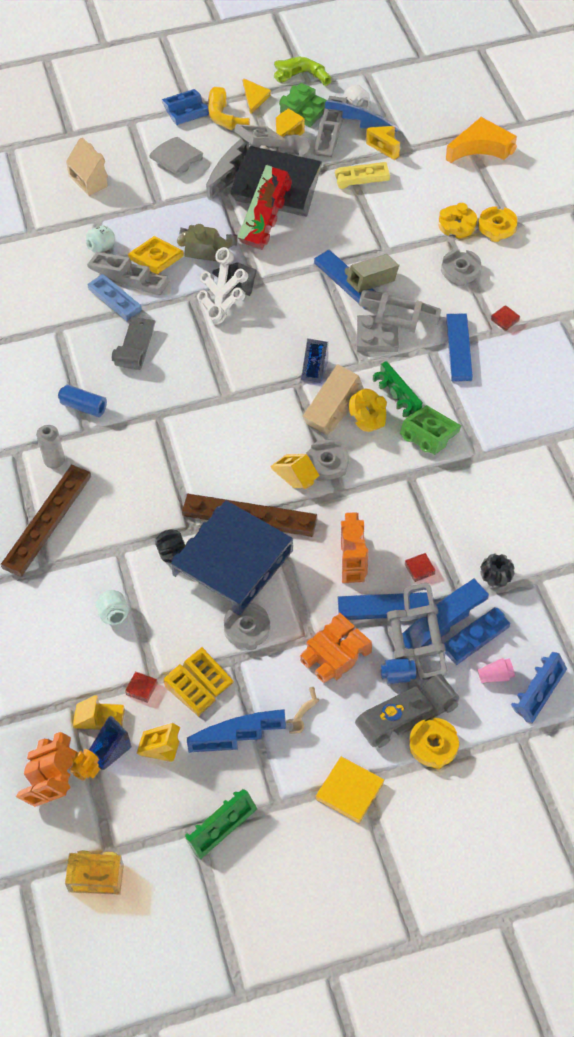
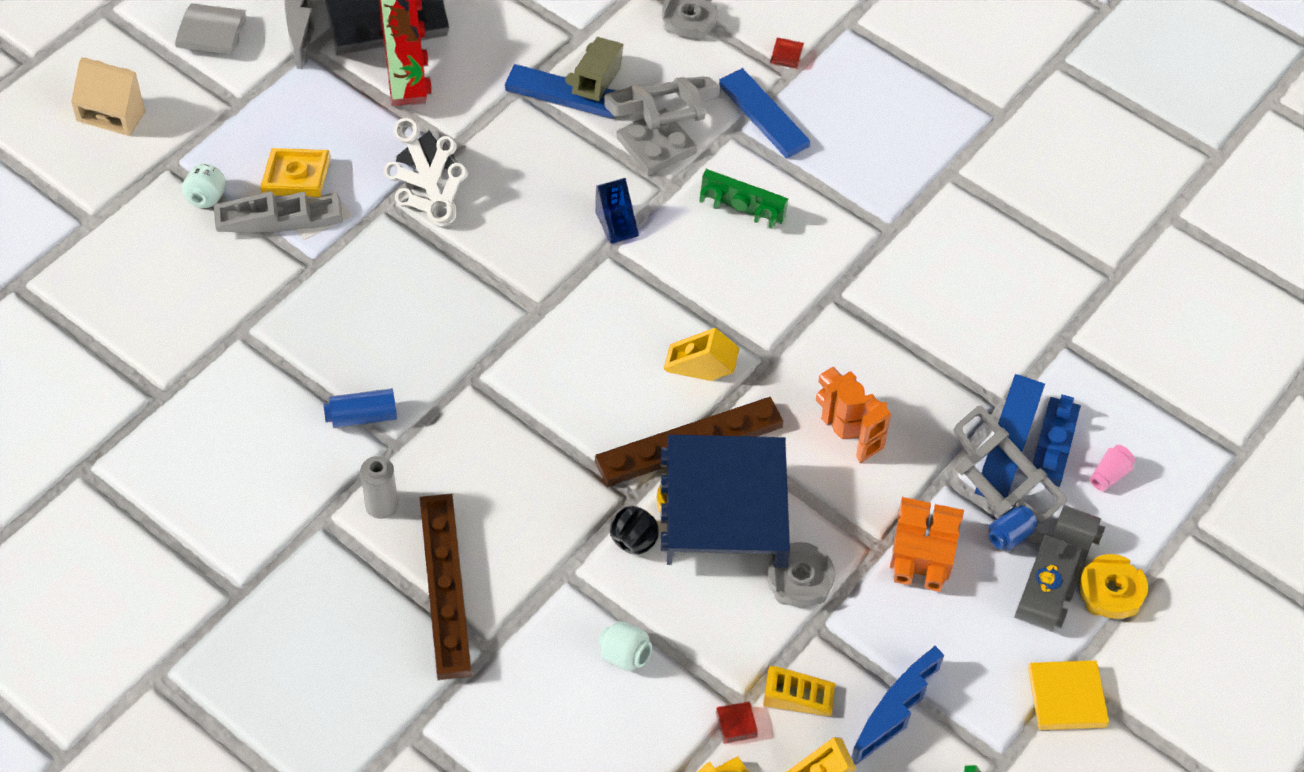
camera: 40 degrees left, 0 degrees up
(114, 297) = (287, 253): medium blue plate -> none
(135, 344) = (366, 301): dark grey door -> none
(202, 654) = (802, 646): yellow slope -> none
(203, 242) = (350, 127): olive torso -> none
(297, 722) = (953, 656): tan piece -> none
(332, 400) = (683, 247): tan wedge -> none
(334, 452) = (734, 311): light grey plate -> none
(377, 406) = (730, 236): yellow plate -> none
(378, 605) = (927, 465): blue tile -> none
(420, 567) = (932, 396): clear red tile -> none
(429, 429) = (816, 228): bright green plate -> none
(497, 570) = (1023, 352): black piece -> none
(540, 687) = (1168, 458): blue plate -> none

